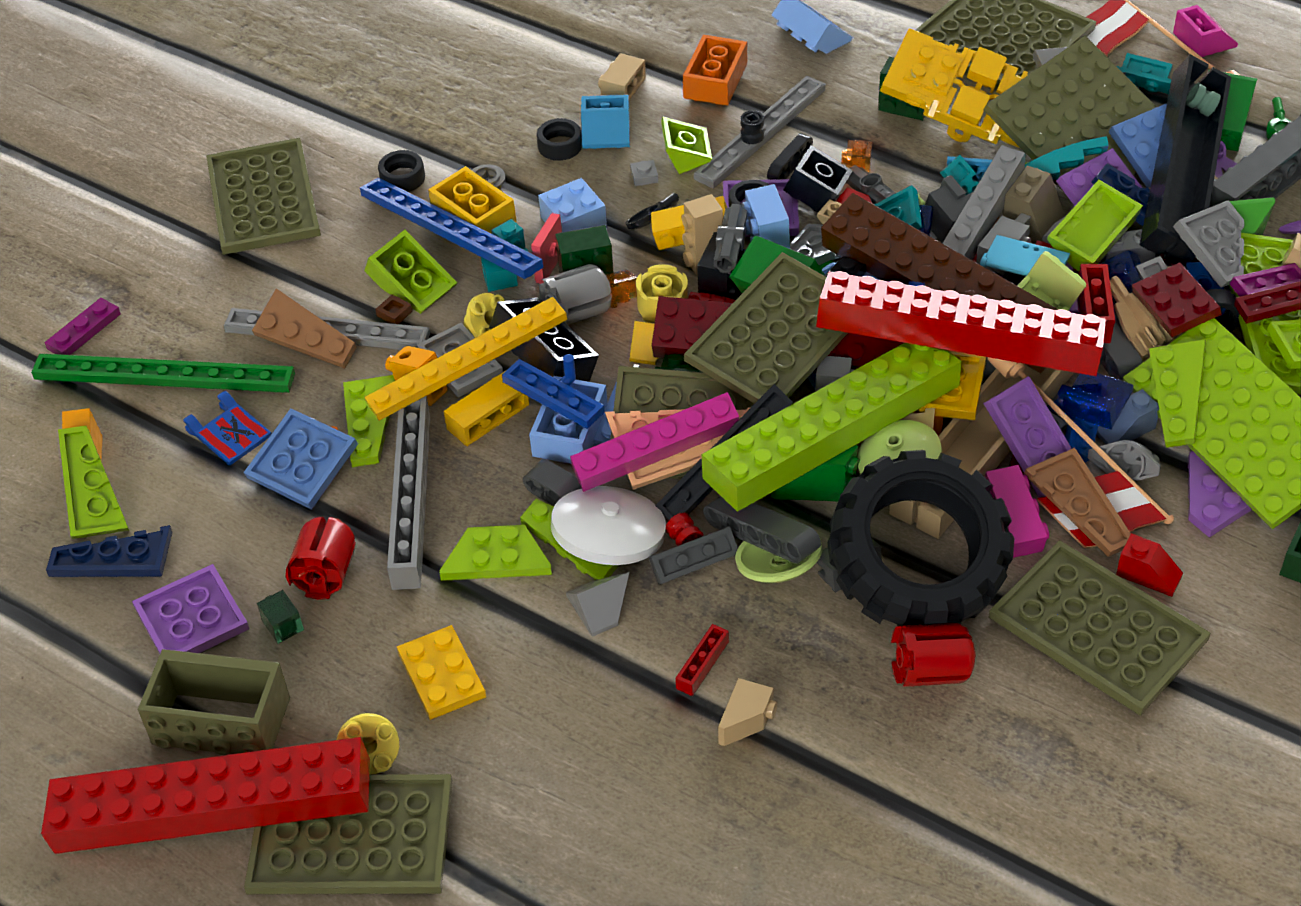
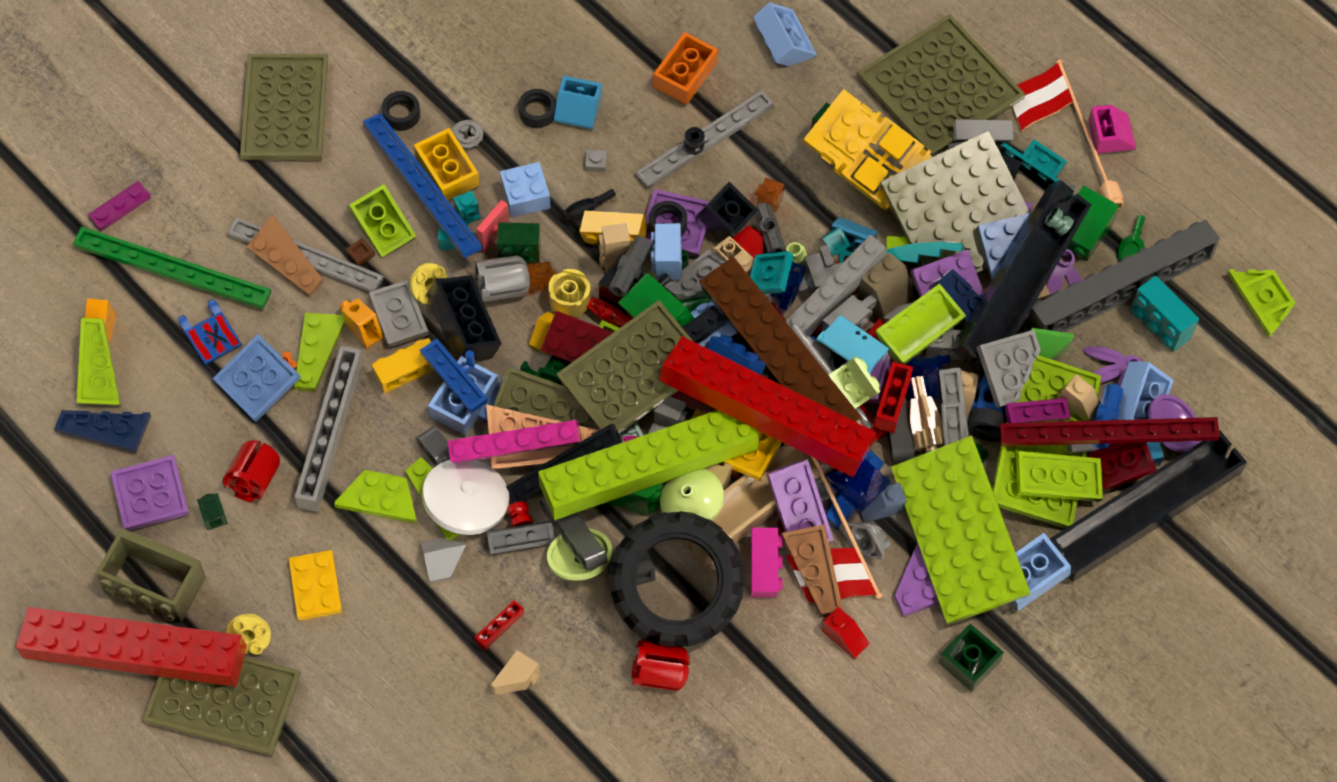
camera: 10 degrees right, 15 degrees up
(465, 358) = (397, 326): yellow plate -> none
(623, 76) = (607, 55): tan brick -> none
(686, 144) = (635, 143): lime slope -> none
(789, 157) = (716, 178): black beam -> none
(1099, 626) = (789, 671): olive plate -> none
(1176, 299) = (951, 414): dark red plate -> none
(1178, 389) = (924, 484): lime wing -> none

